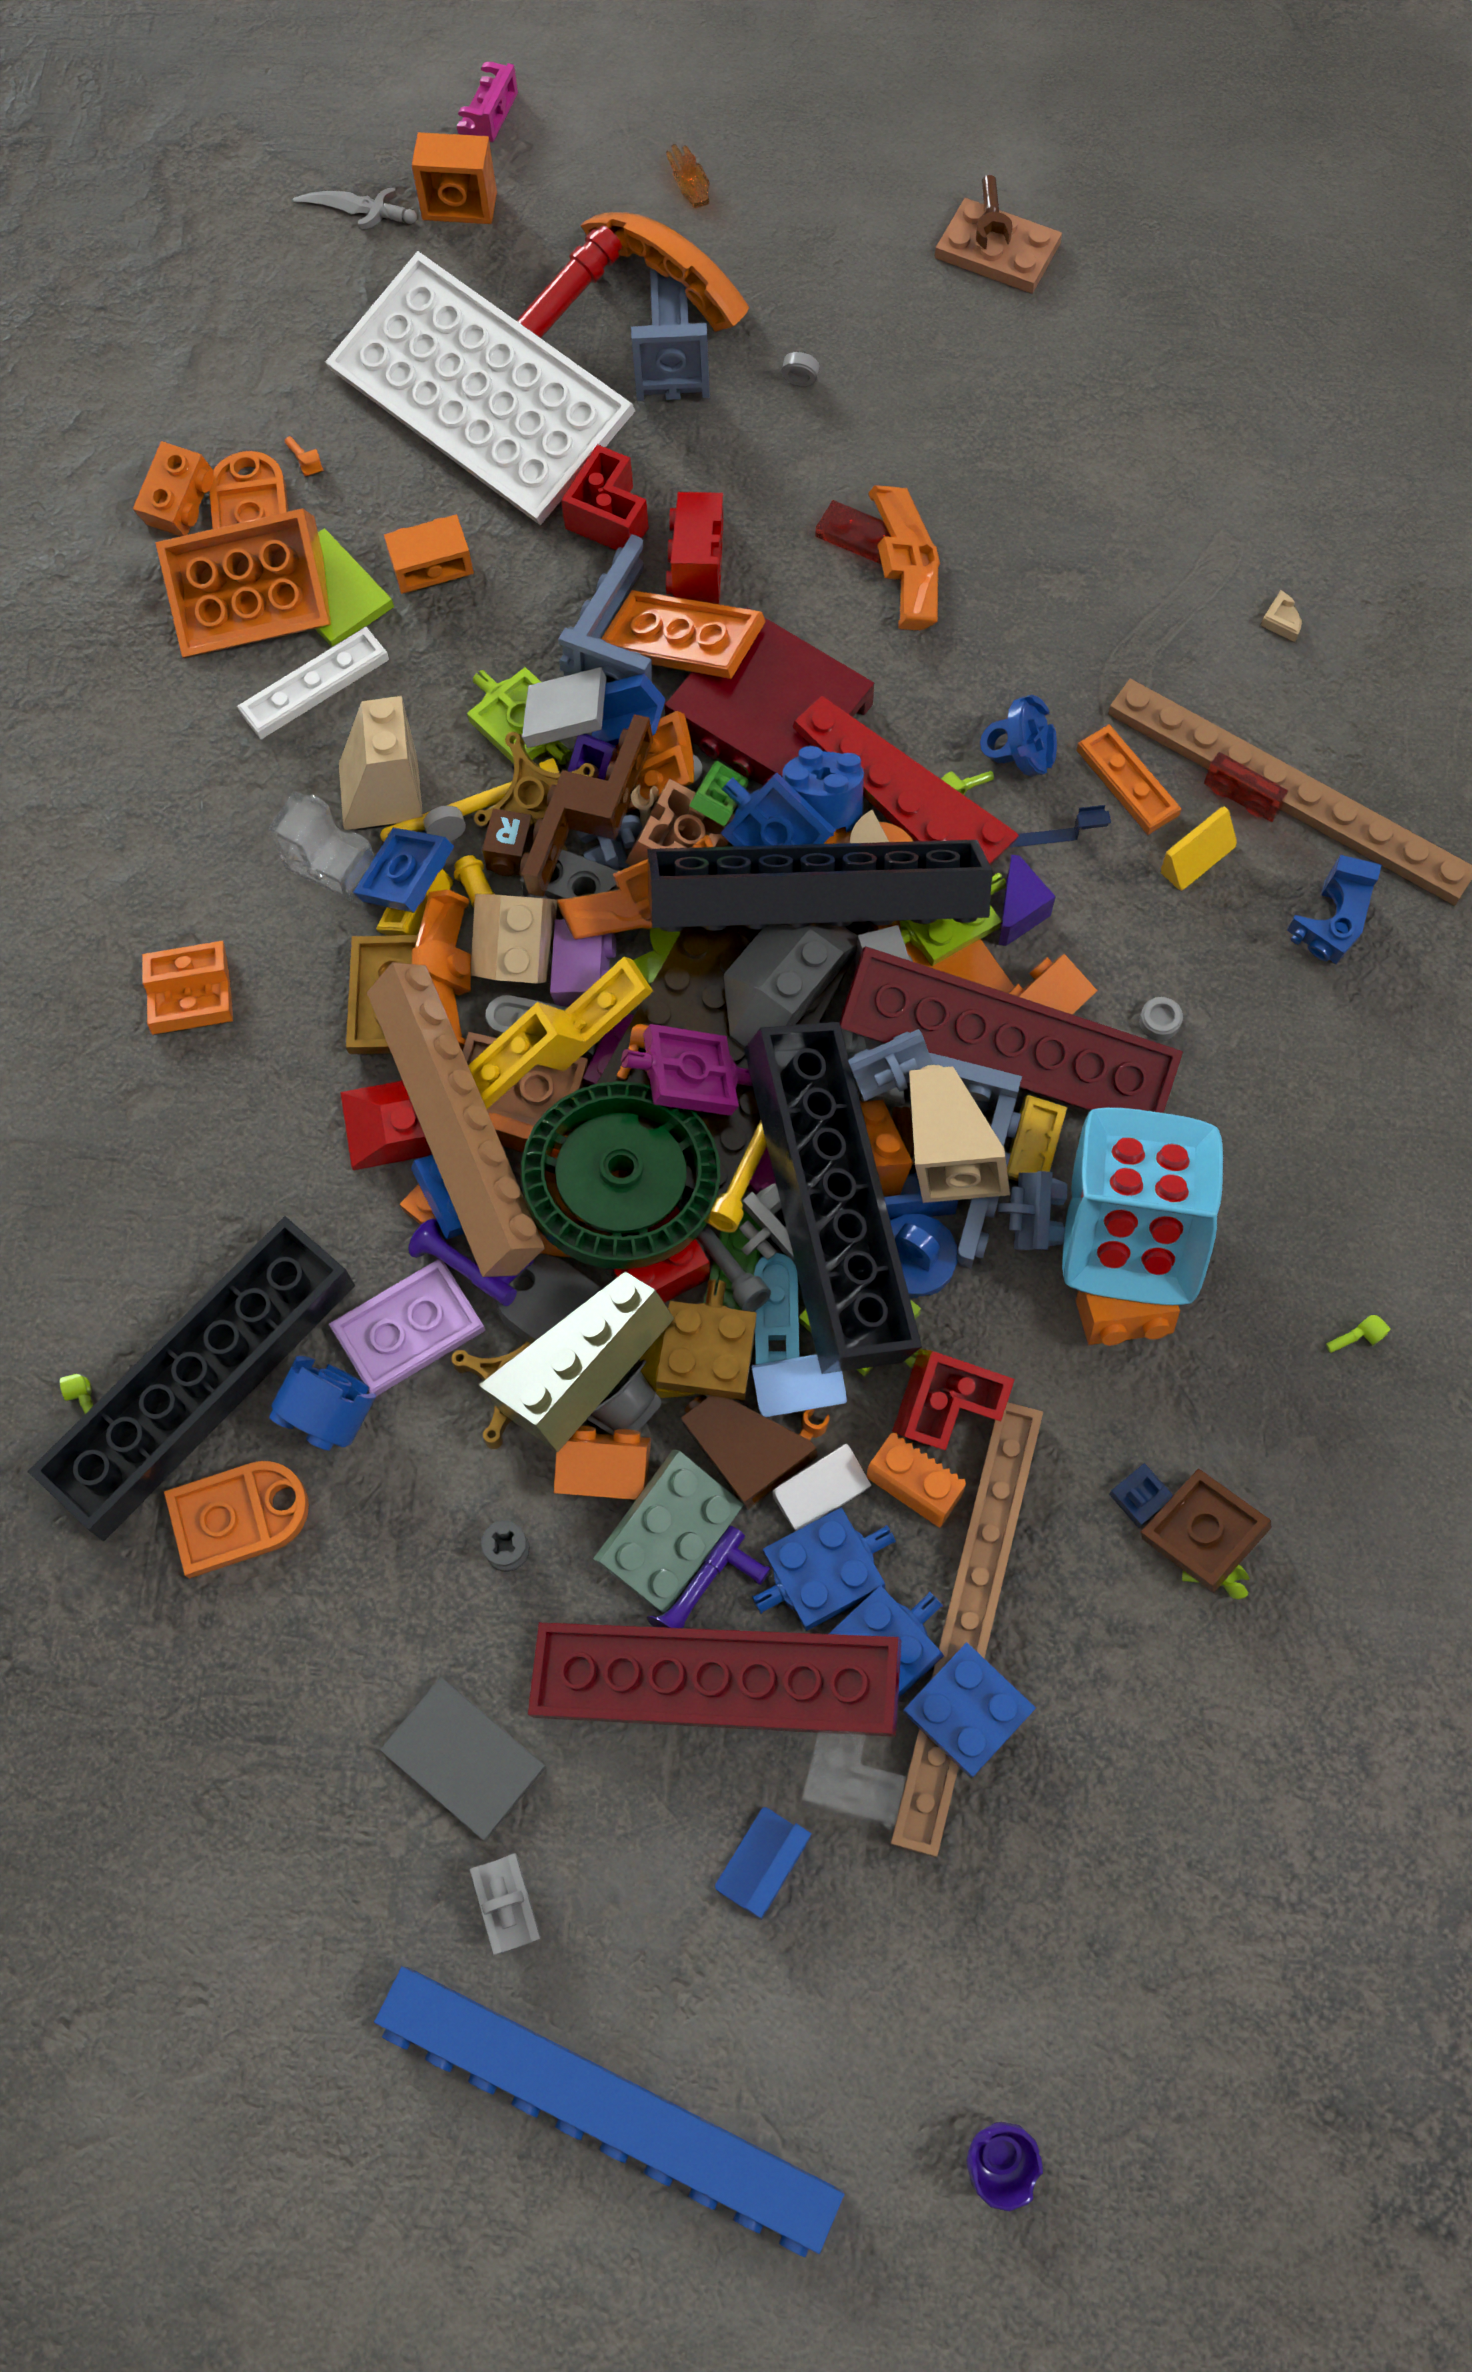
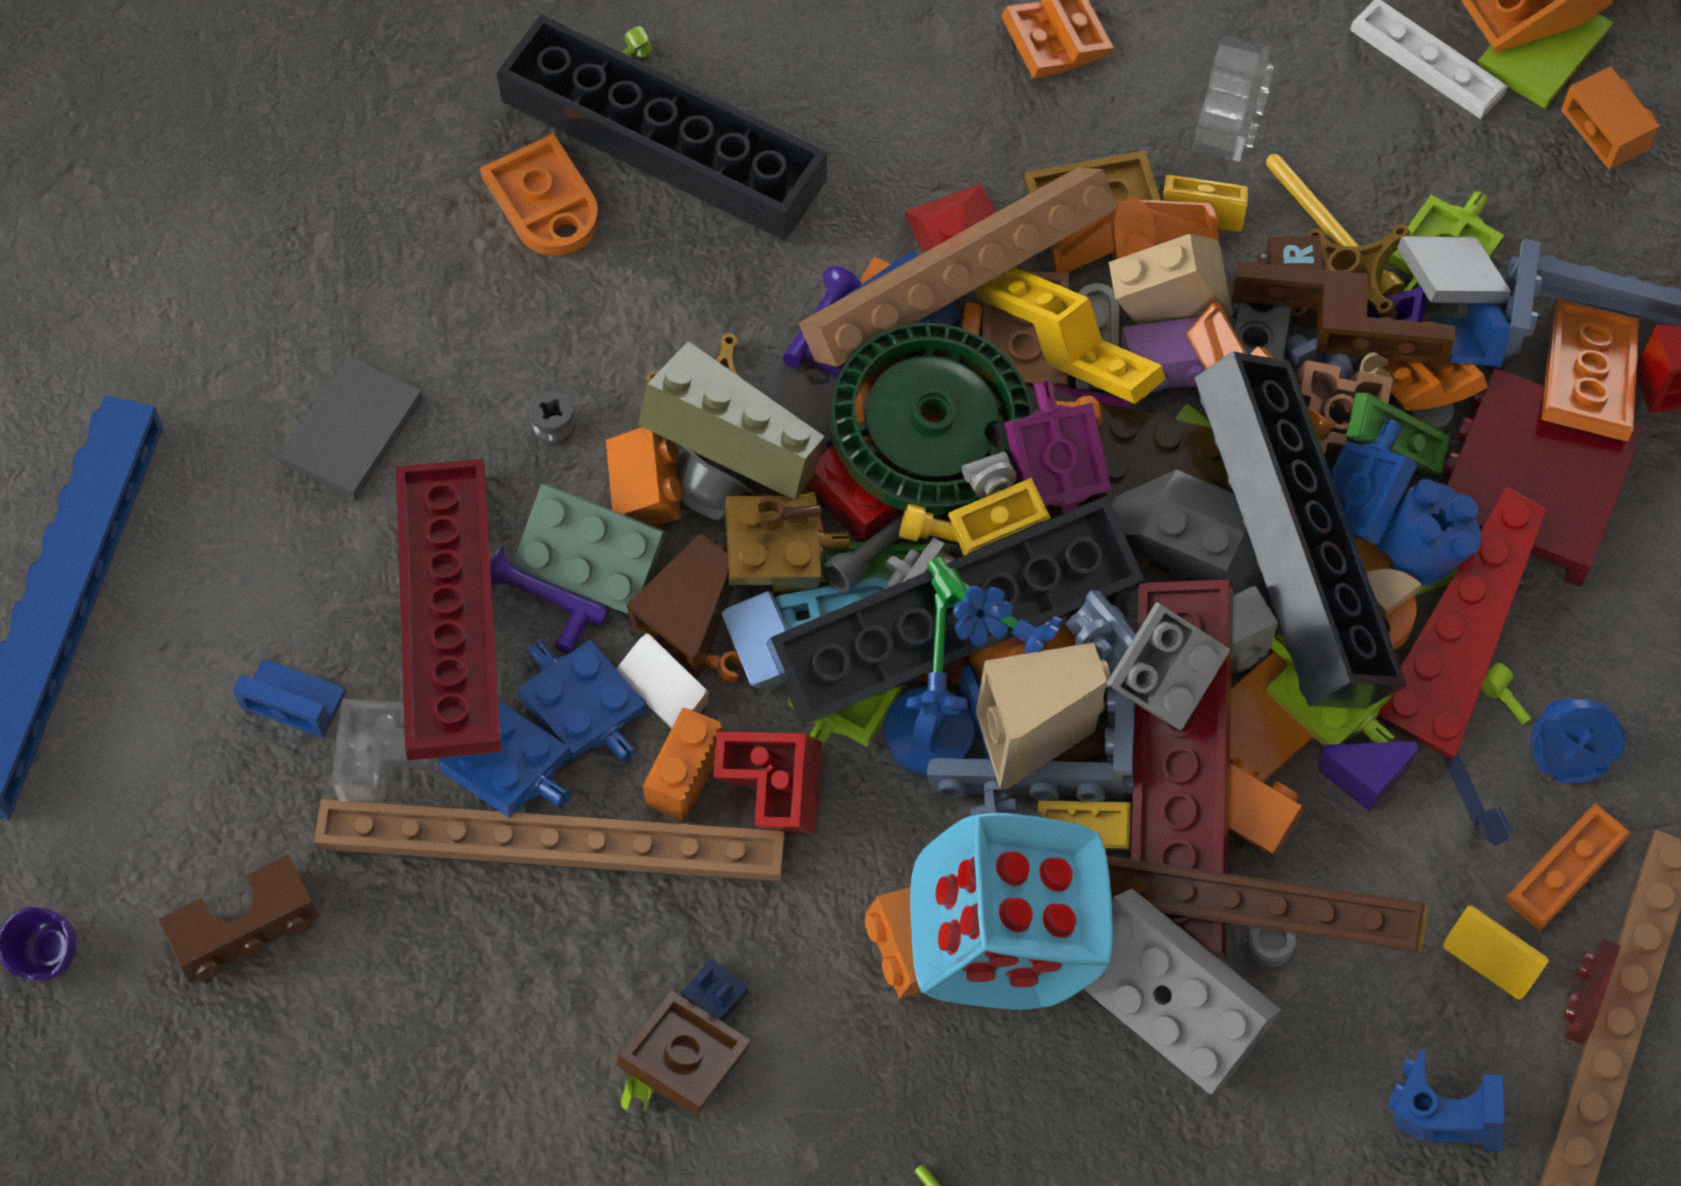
camera: 75 degrees right, 5 degrees down
(322, 1403) = (654, 229): blue brick -> none
(379, 767) = (1336, 130): tan slope -> none
(404, 869) = (1229, 176): blue plate -> none
(407, 1327) = (751, 293): lavender tile -> none
(445, 822) = (1297, 204): light grey tile -> none
(470, 872) = (1243, 244): yellow pin -> none
(505, 1904) = (221, 481): light grey hips -> none
(692, 1324) = (783, 513): none -> reddish brown hand
(702, 1129) = (989, 474): none -> light grey plate
(747, 1133) = (998, 516): none -> yellow slope
(888, 1140) = (978, 616): none -> blue plant
(948, 1012) = (1168, 666): none -> light grey slope
(969, 1710) = (457, 845): blue plate -> none
(1025, 1986) = (277, 909): none -> reddish brown arch
(1157, 1001) = (1273, 904): none -> reddish brown tile
(1229, 1081) = (1212, 1009): none -> light grey brick

